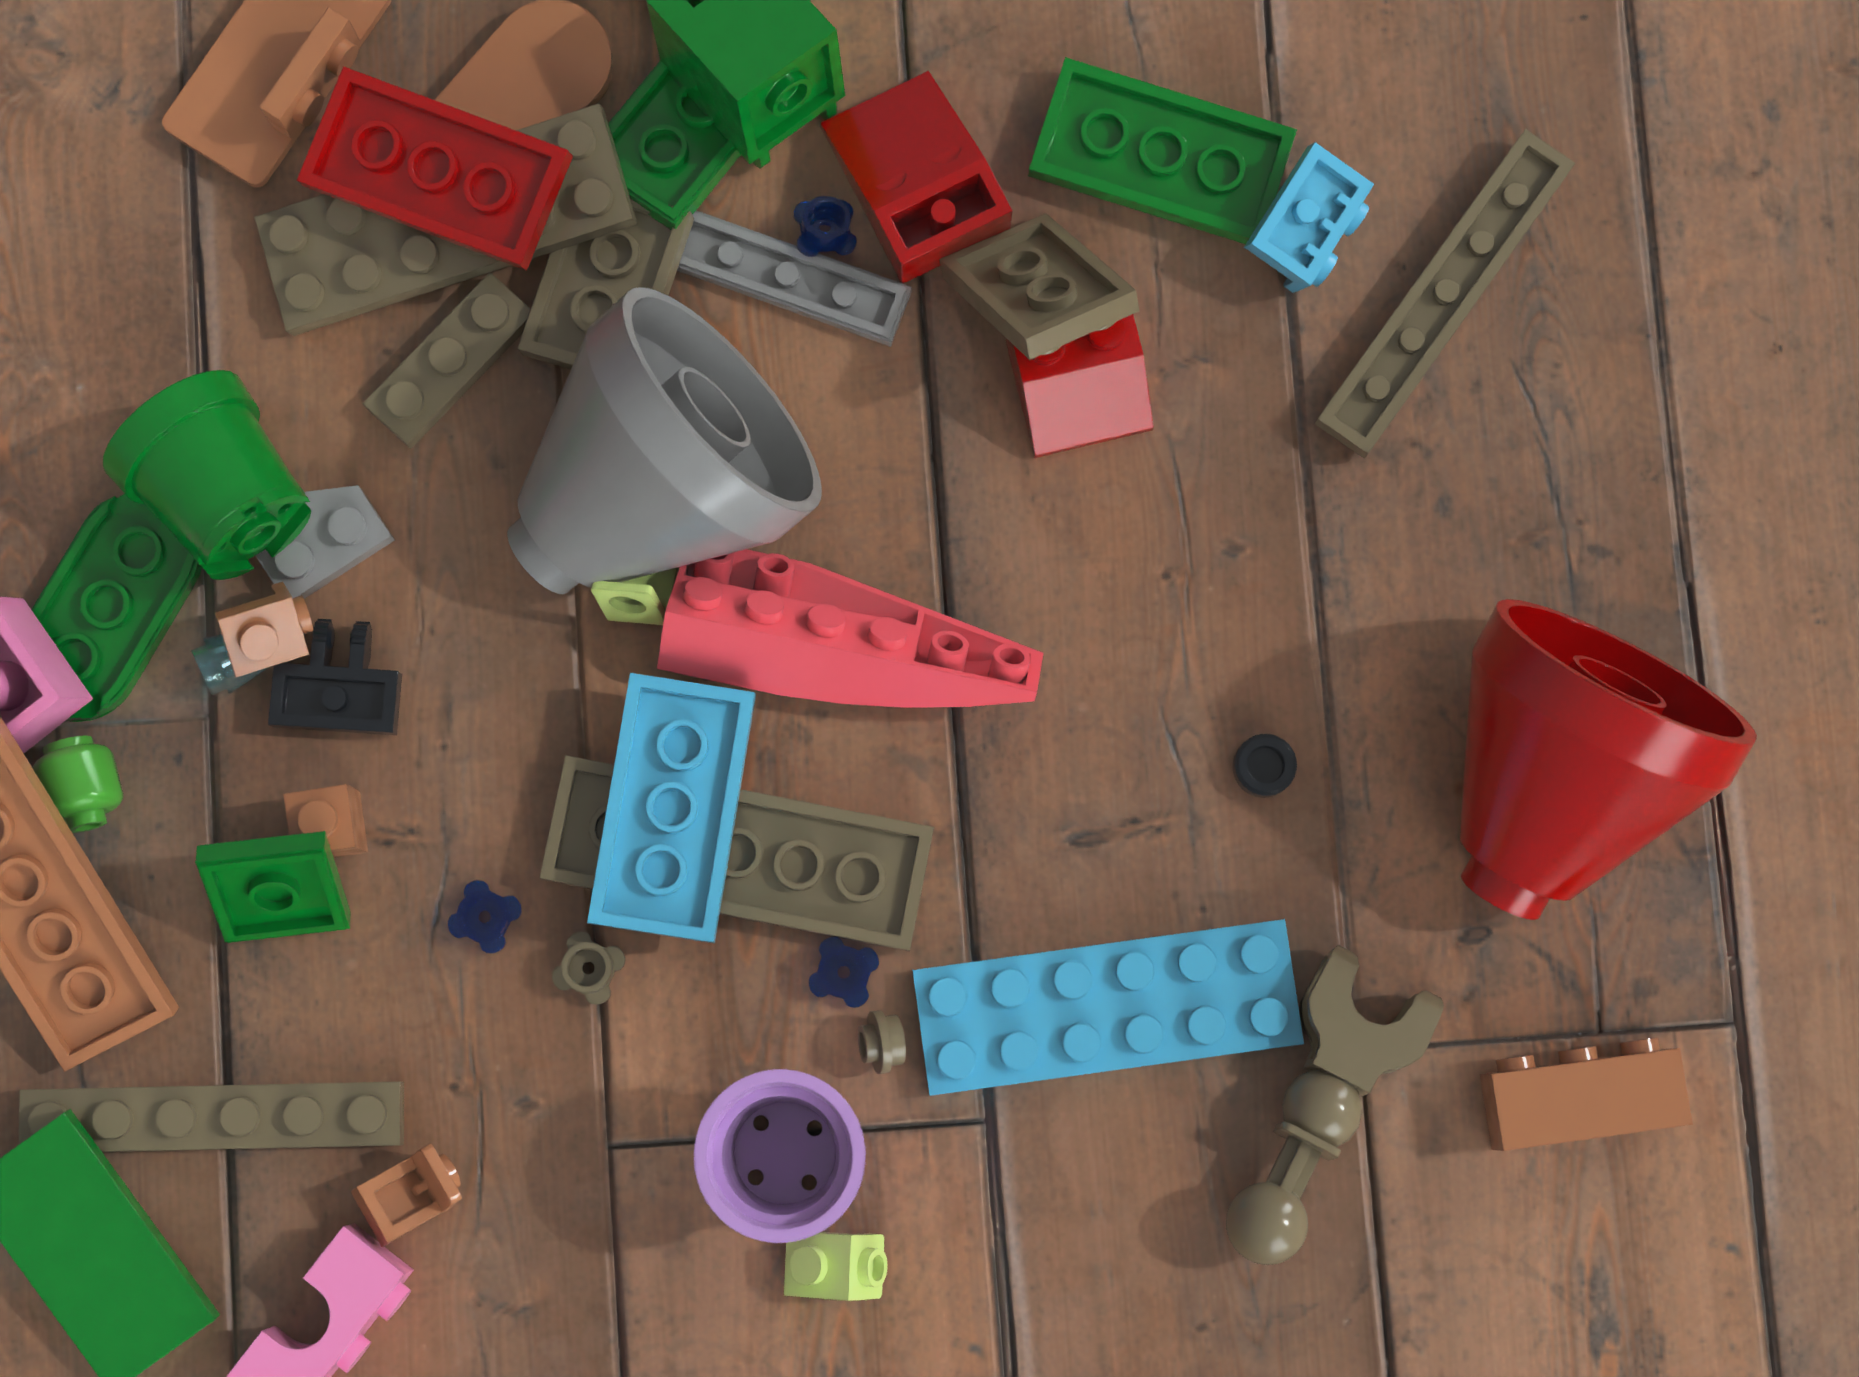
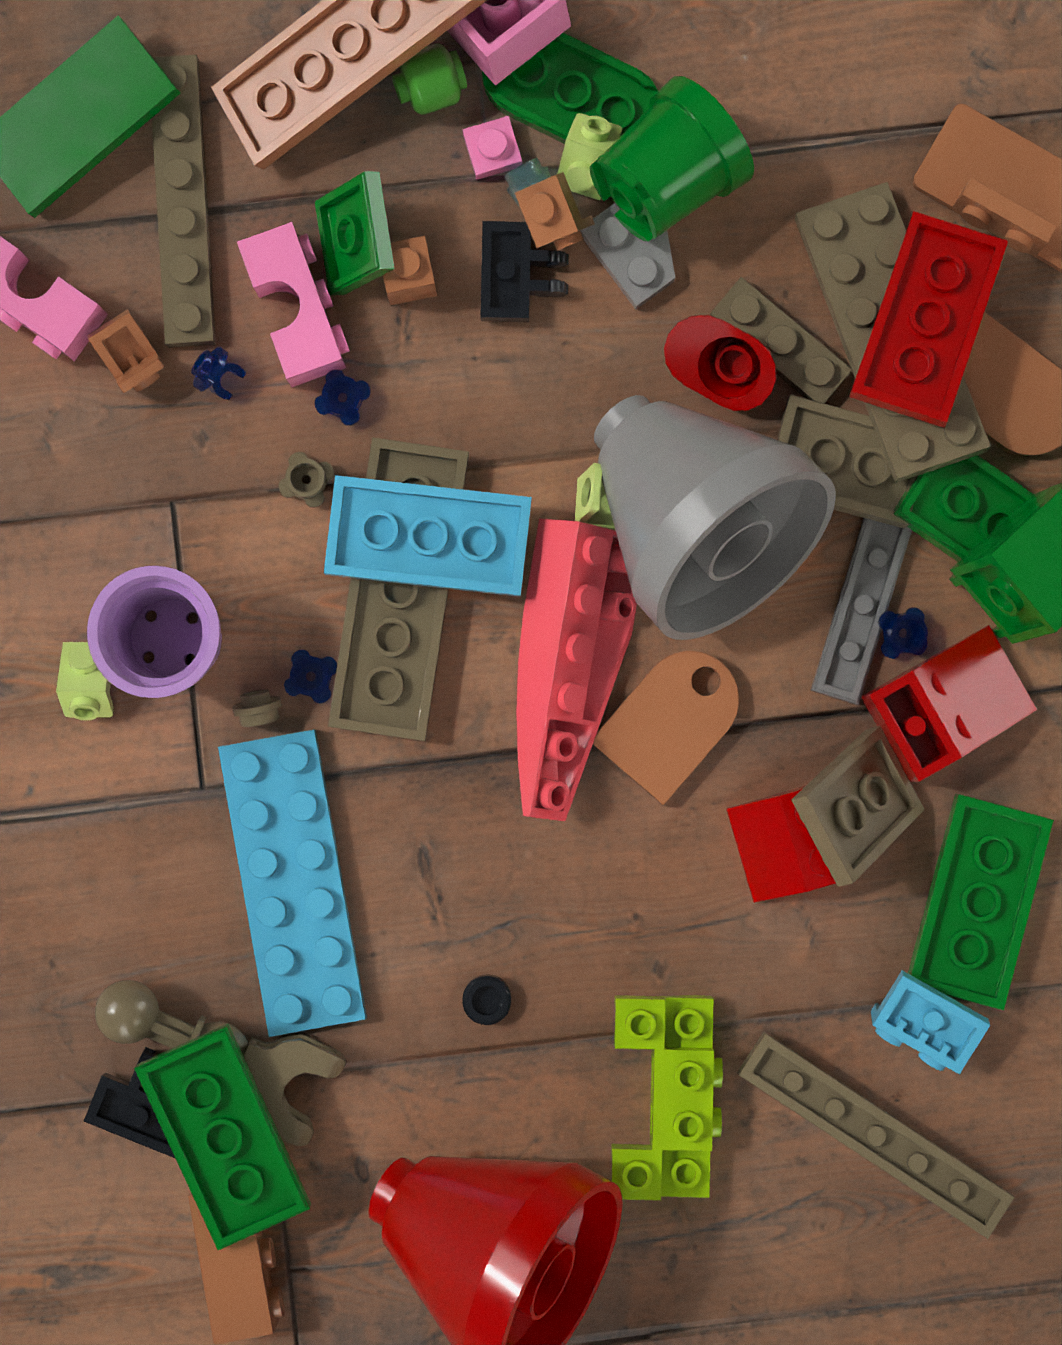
camera: 90 degrees right, 5 degrees up
(172, 710) = (492, 147): none -> bright pink plate
(181, 585) = (584, 144): none -> yellowish green bracket
(305, 985) = (279, 263): none -> bright pink arch
(438, 1087) = (210, 368): none -> clear blue plate
(471, 430) = (720, 362): none -> red piece
(928, 523) = (667, 725): none -> nougat tile
(1391, 527) = (681, 1096): none -> lime bracket
(1397, 1213) = (126, 1111): none -> black hinge
(1429, 1100) = (223, 1136): none -> green tile

